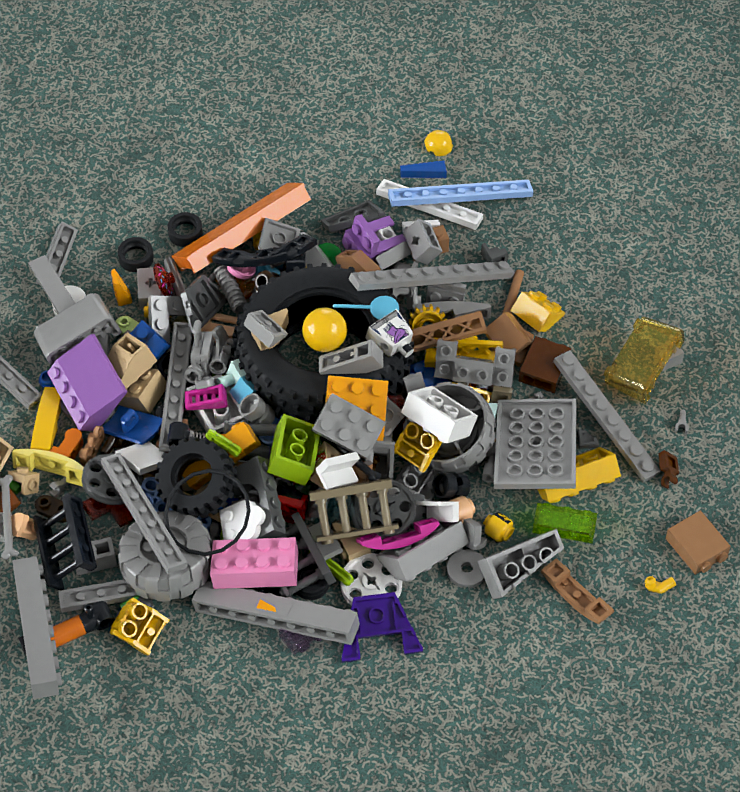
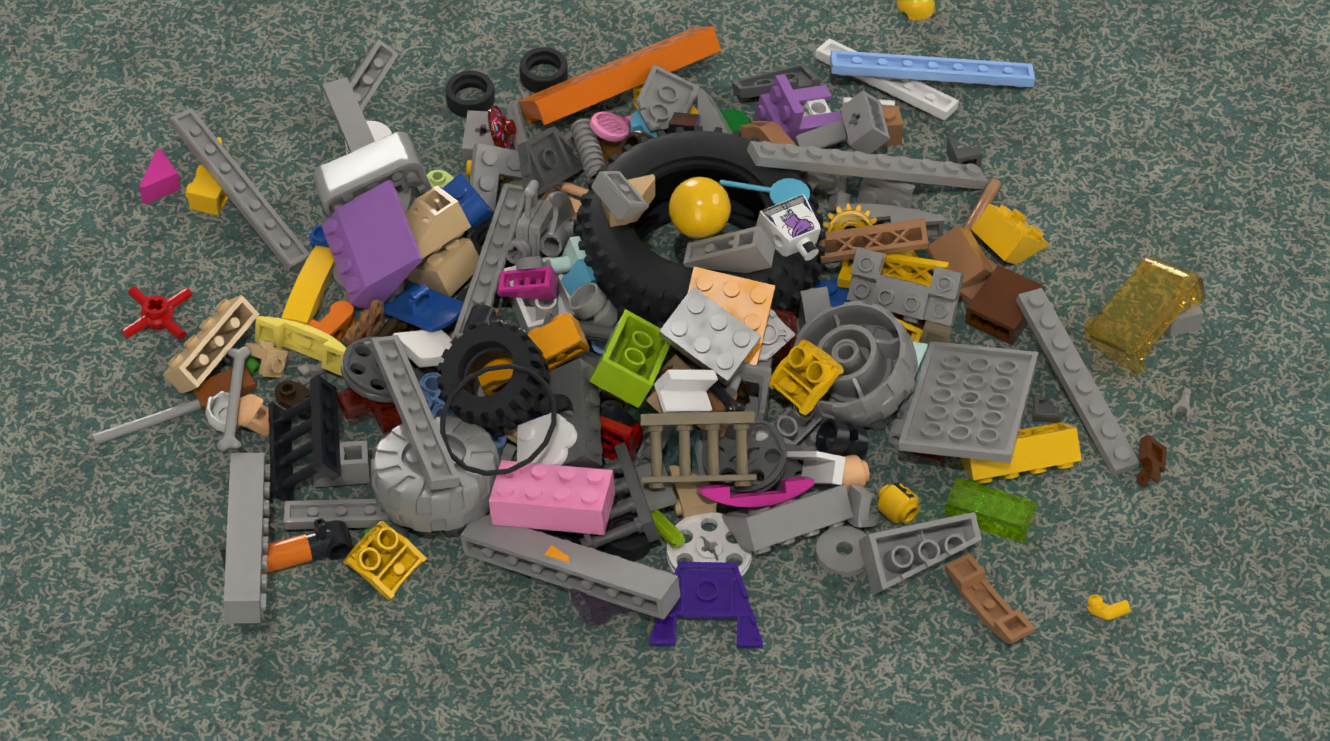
camera: 10 degrees right, 5 degrees down
(121, 291) = (442, 138): light orange slope -> none
(223, 442) = (539, 337): lime axle -> none
(265, 257) = (643, 113): black tile -> none
(424, 170) = (888, 34): blue piece -> none
(439, 414) = (837, 338): white brick -> none
(698, 542) = (1172, 560): medium nougat brick -> none

